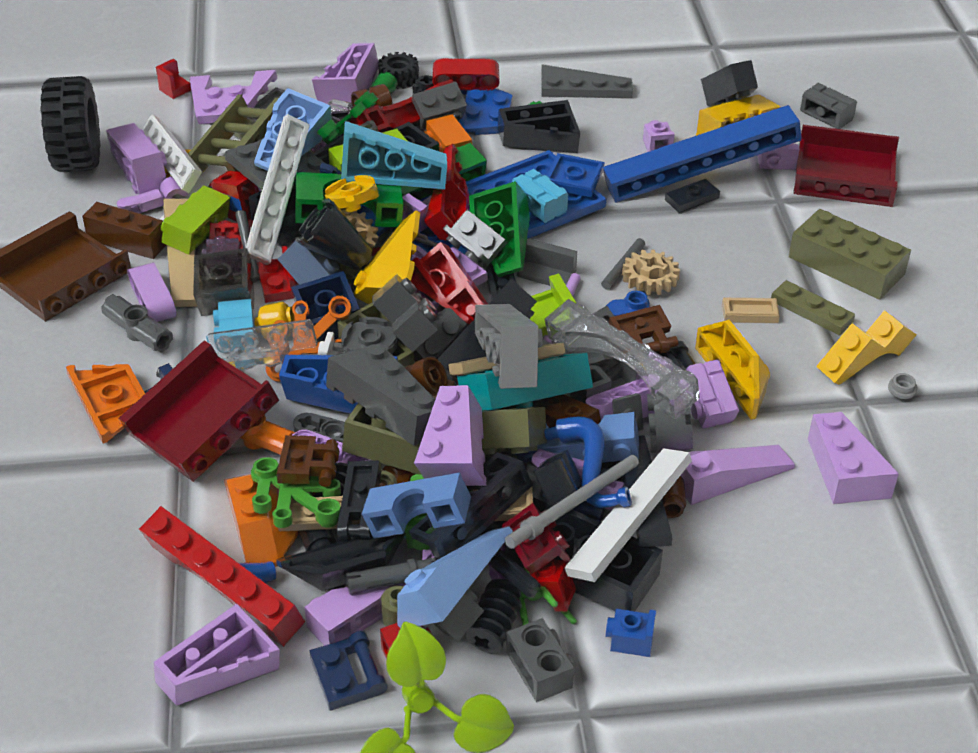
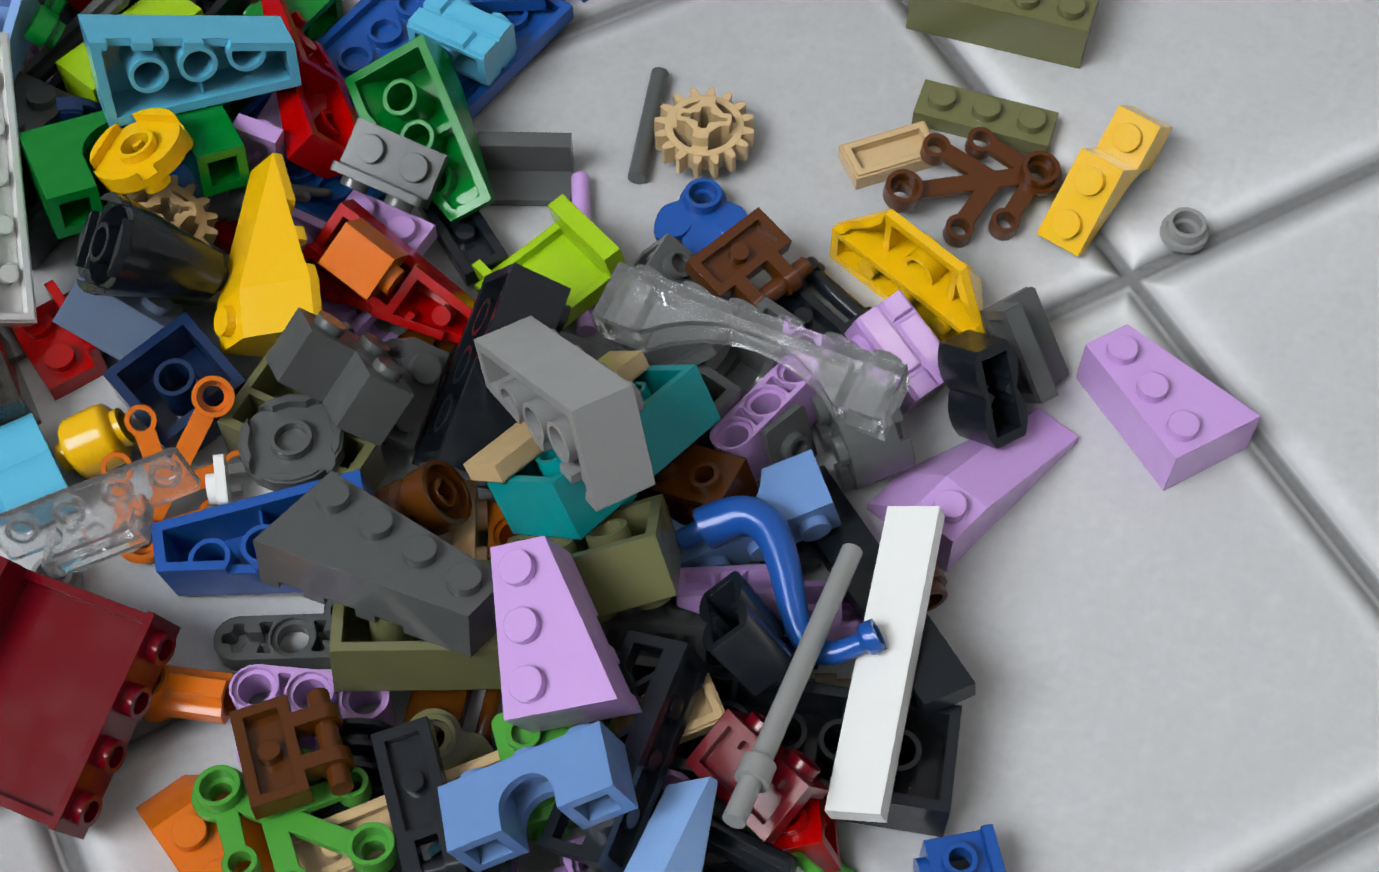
camera: 20 degrees left, 15 degrees up
(441, 270) = (364, 259): none -> orange brick
(744, 411) = (983, 388): none -> black brick
(782, 409) = (1026, 327): none -> dark grey panel
(820, 336) = (976, 180): none -> reddish brown plant

